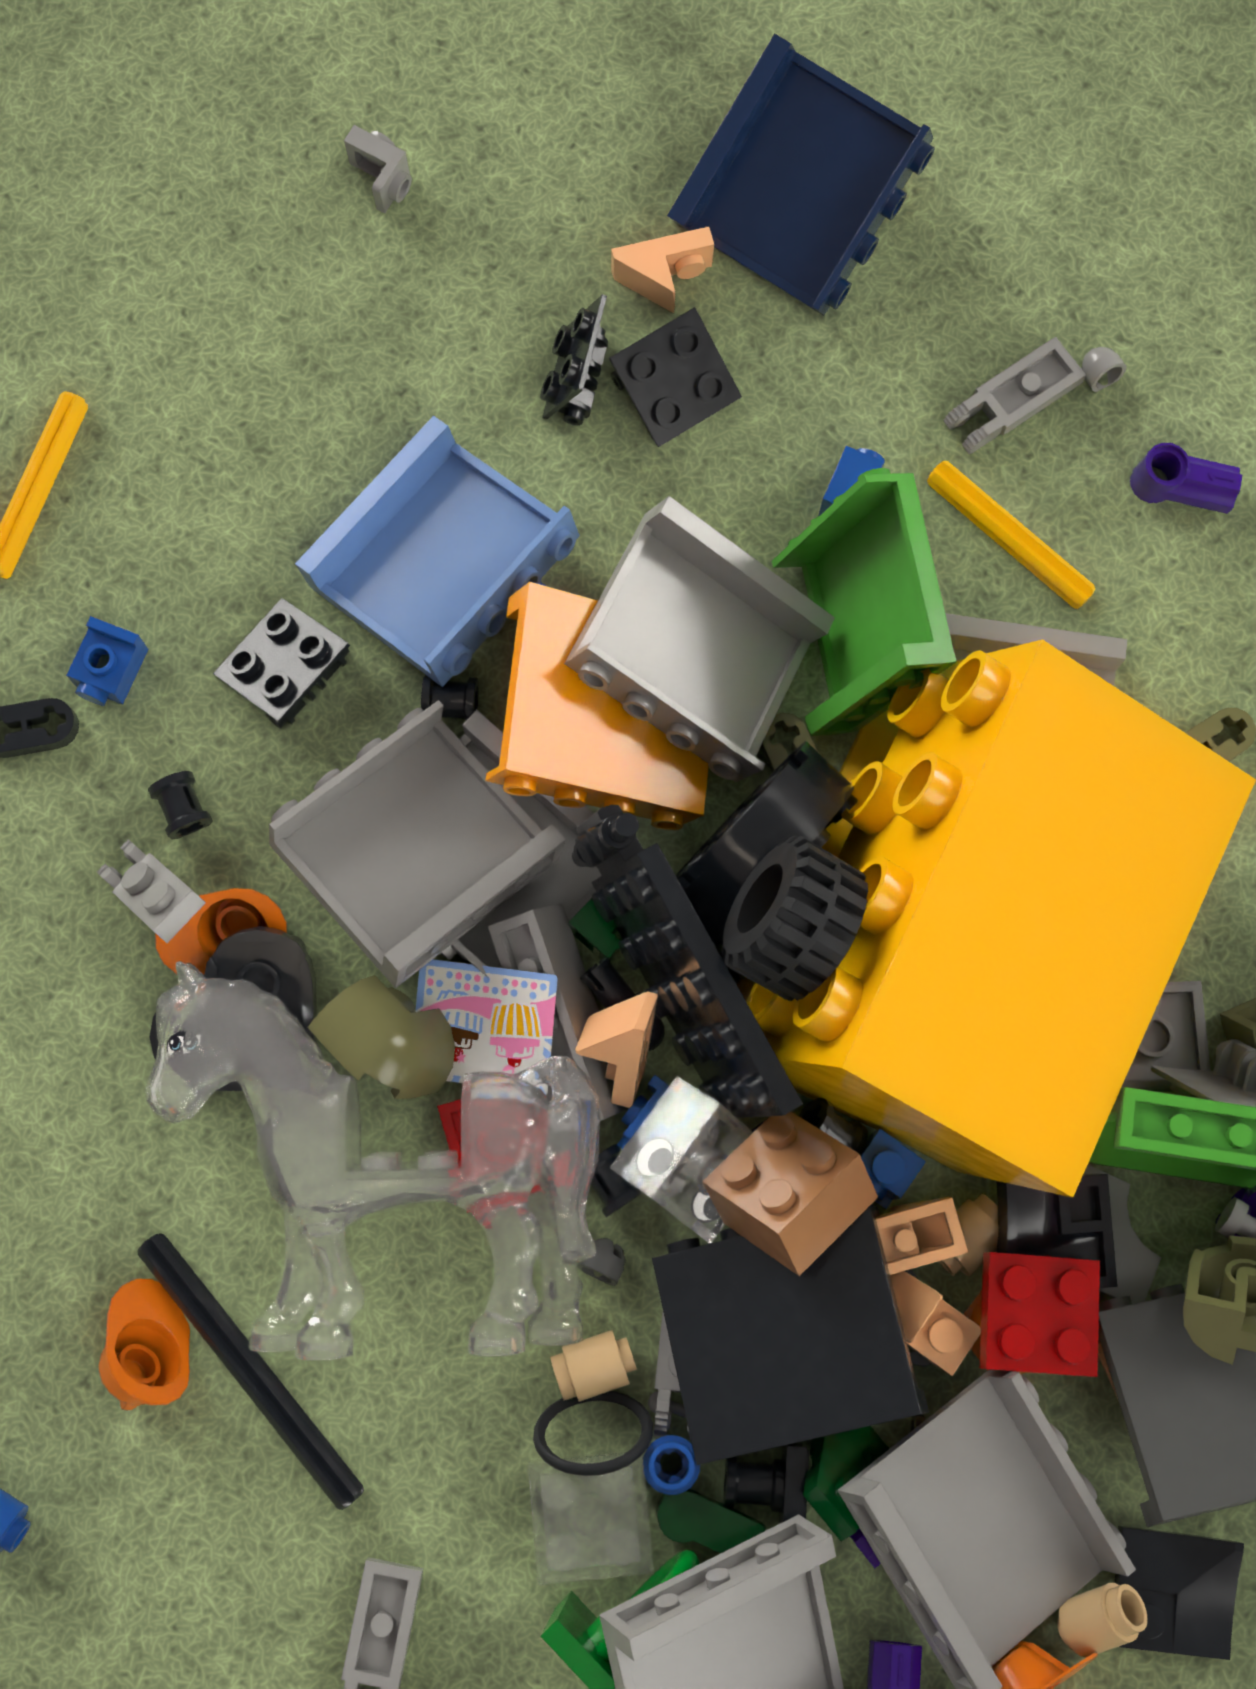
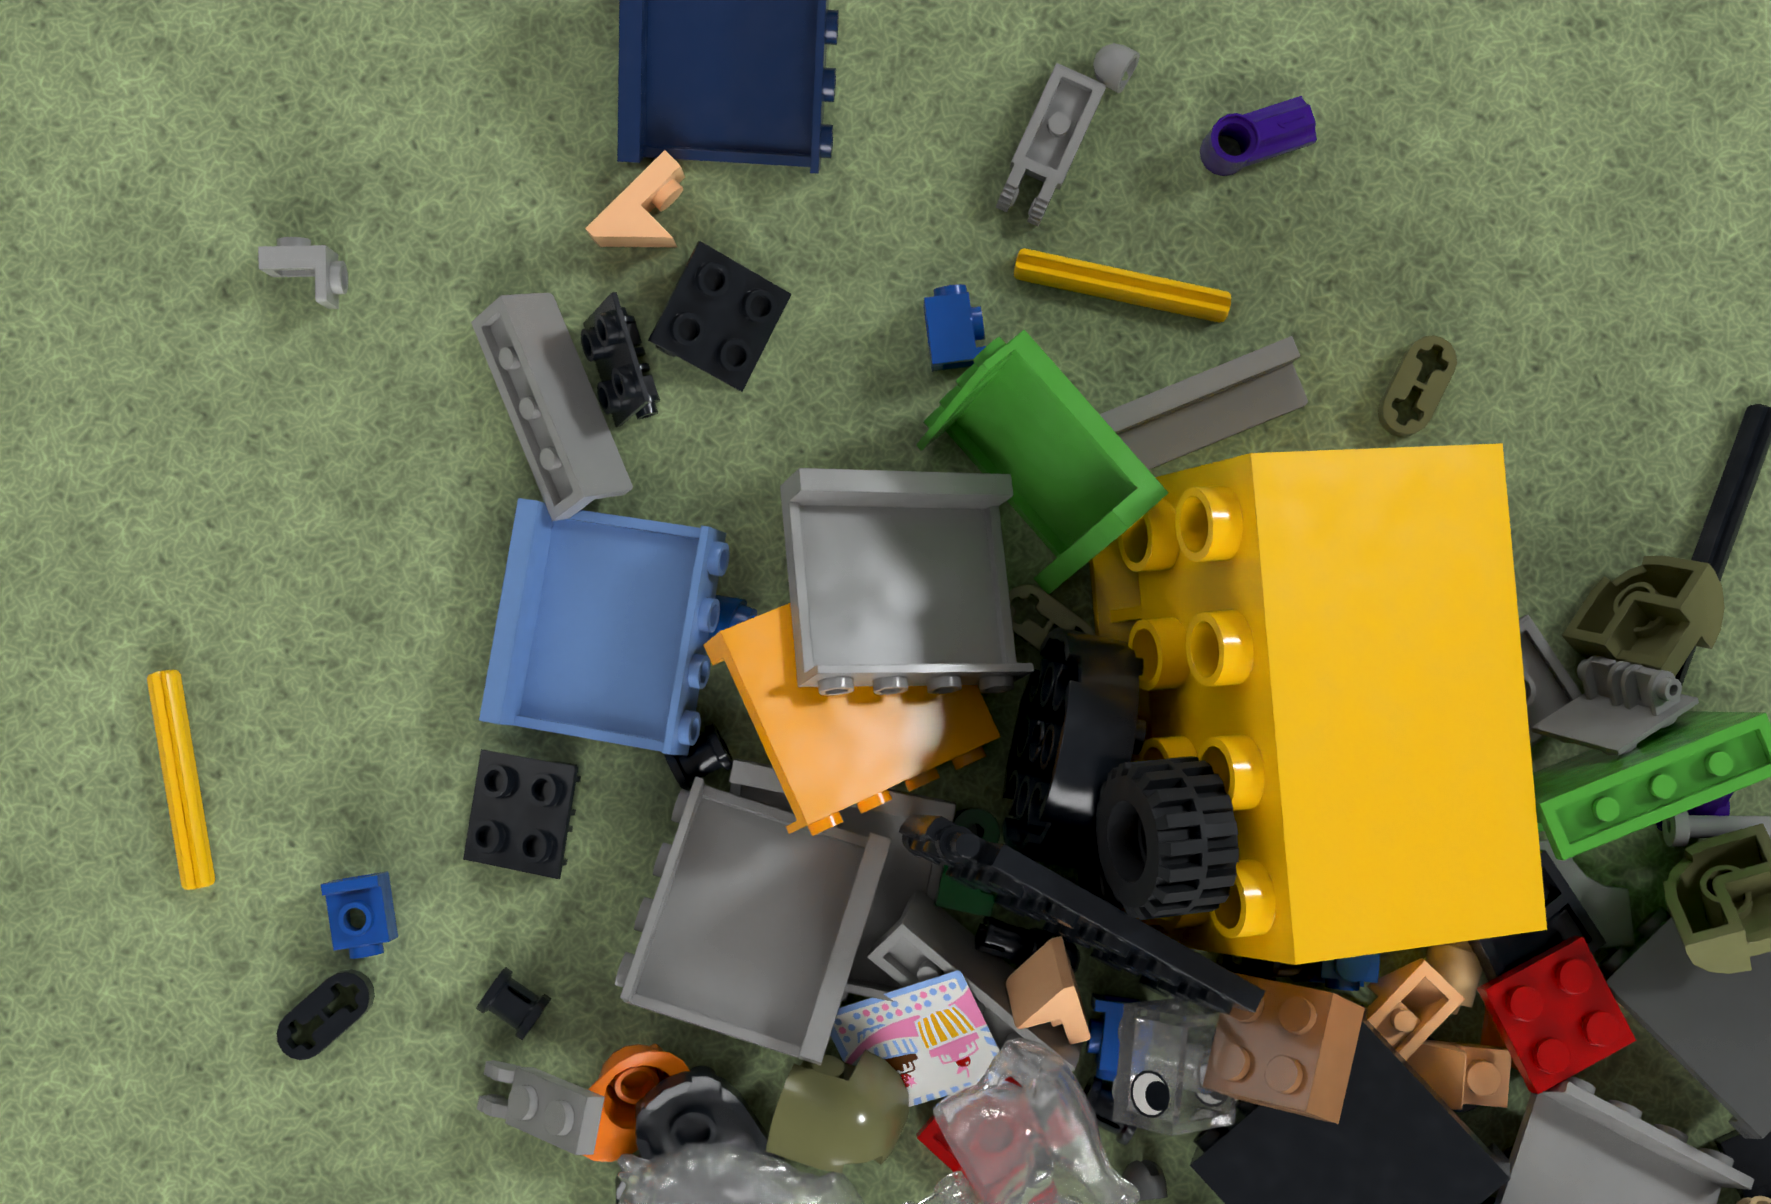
camera: 25 degrees left, 10 degrees up
(503, 365) = (550, 403): none -> light grey panel

